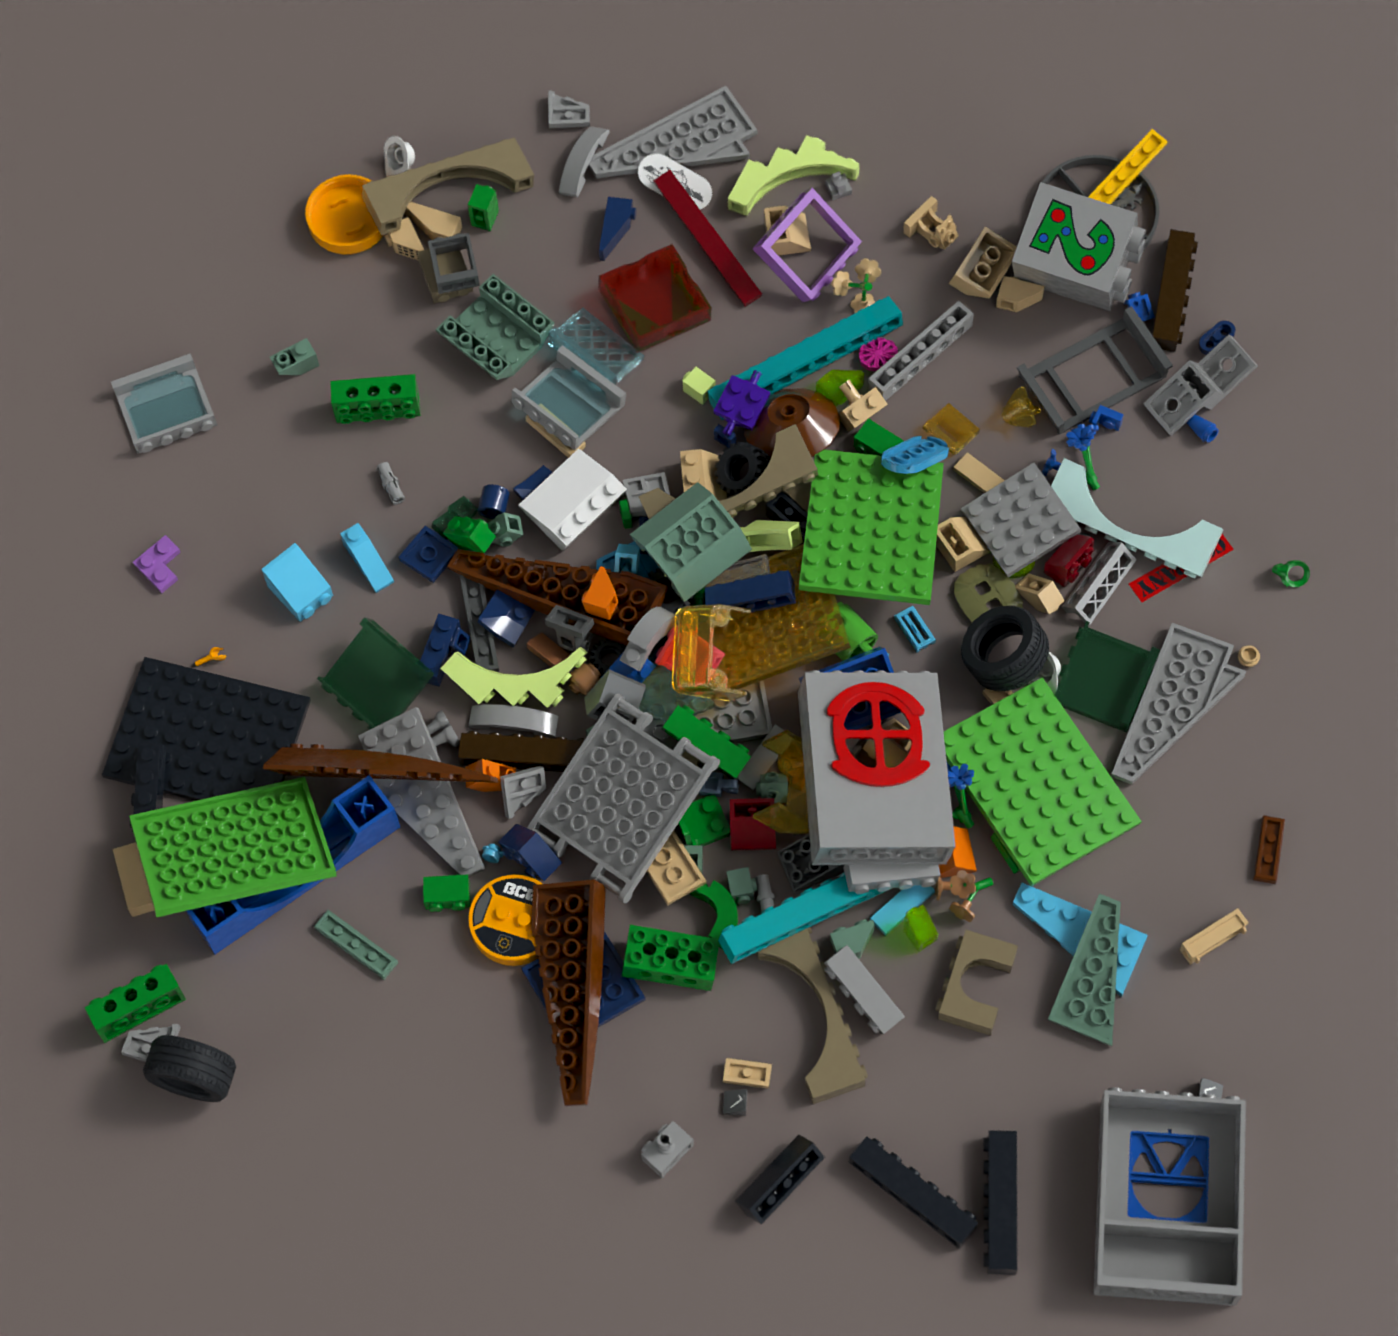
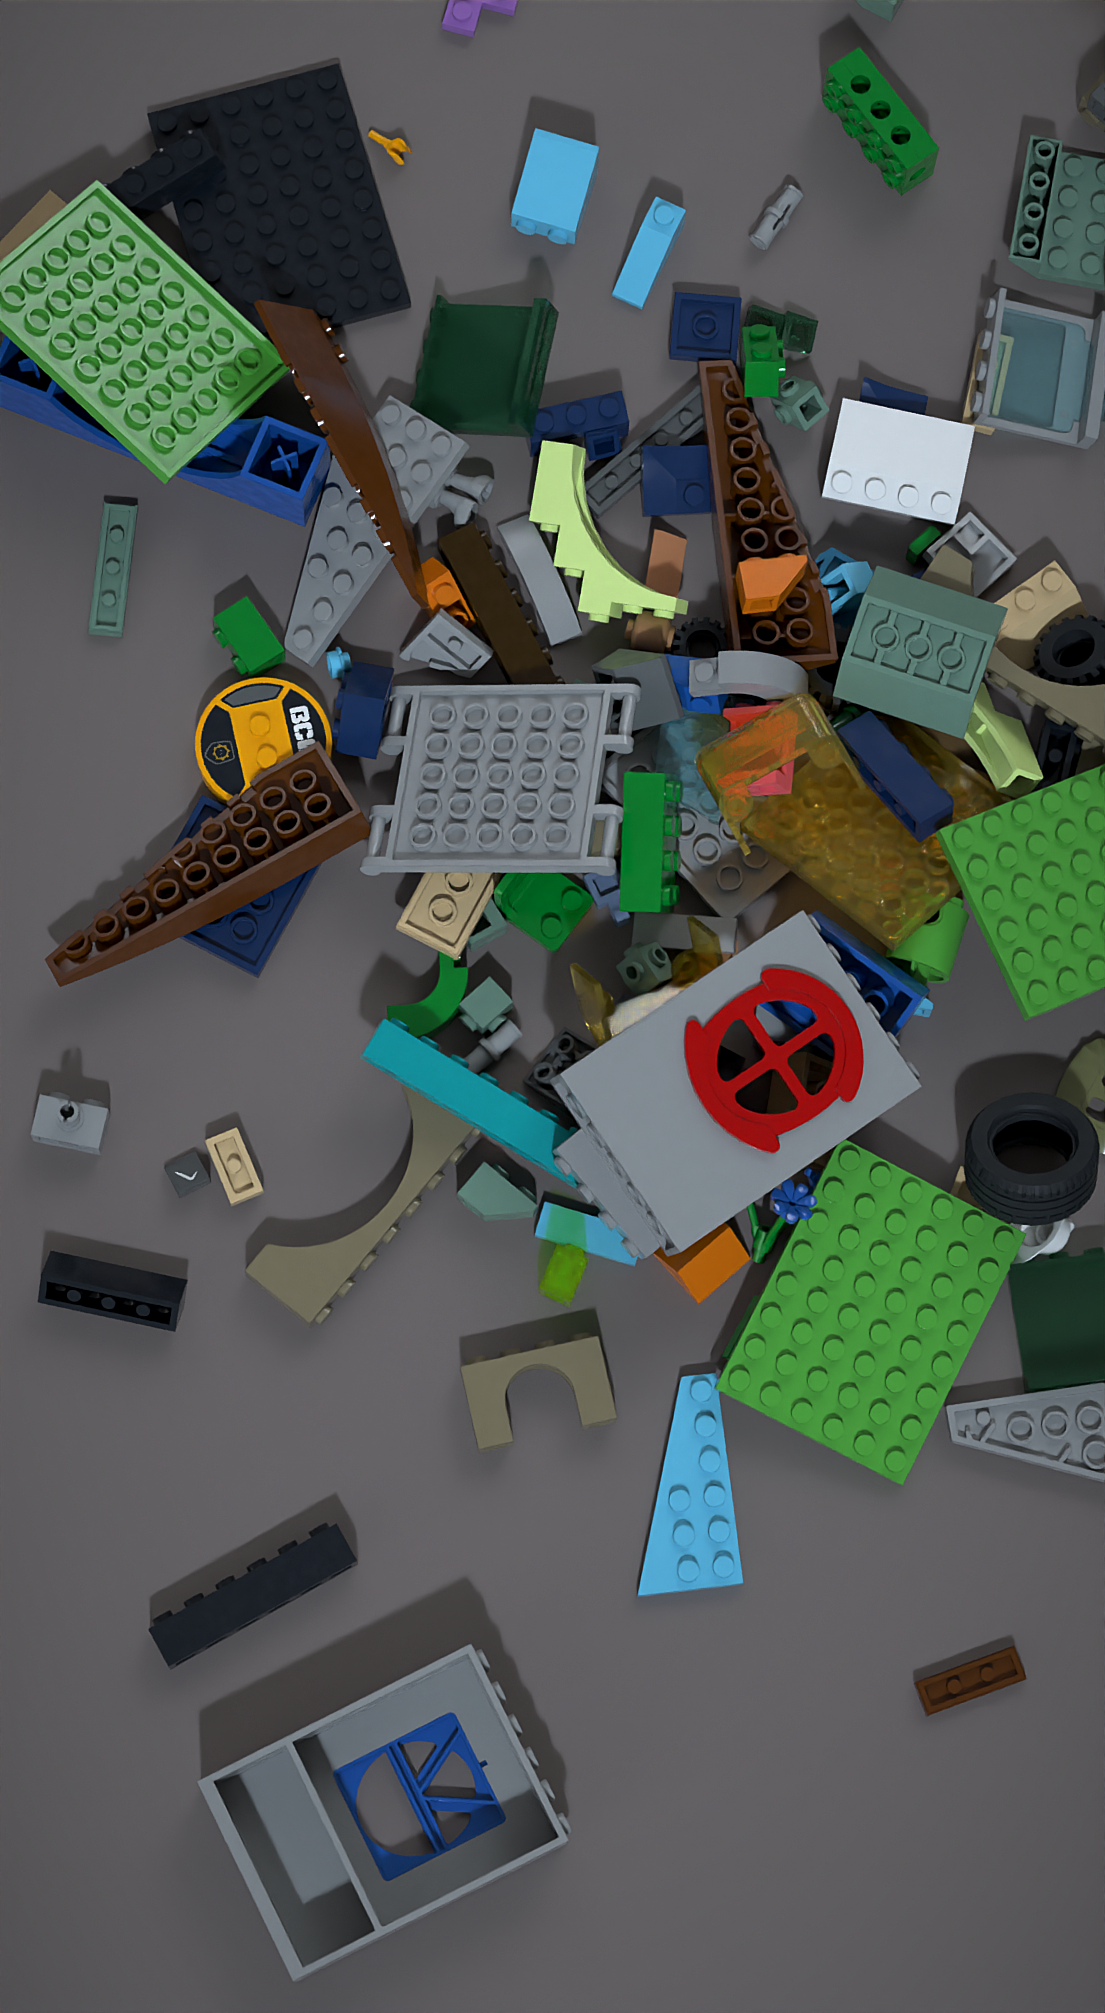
camera: 50 degrees right, 10 degrees up
(493, 501) = (830, 364): dark blue piece -> none
(568, 636) = (697, 587): dark grey tile -> none
(672, 944) = (338, 954): green brick -> none
(744, 570) = (929, 748): clear tile -> none
(745, 830) = (588, 951): dark red slope -> none
(864, 990) = (432, 1250): light grey brick -> none
(913, 1192) = (199, 1472): black brick -> none
(923, 643) = (985, 1049): medium azure tile -> none
(962, 885) = (648, 1299): medium nougat plant -> none
(1090, 983) = (620, 1544): sand green wing -> none
(1209, 1087) = (569, 1788): slope -> none
(1214, 936) = (794, 1673): tan container -> none

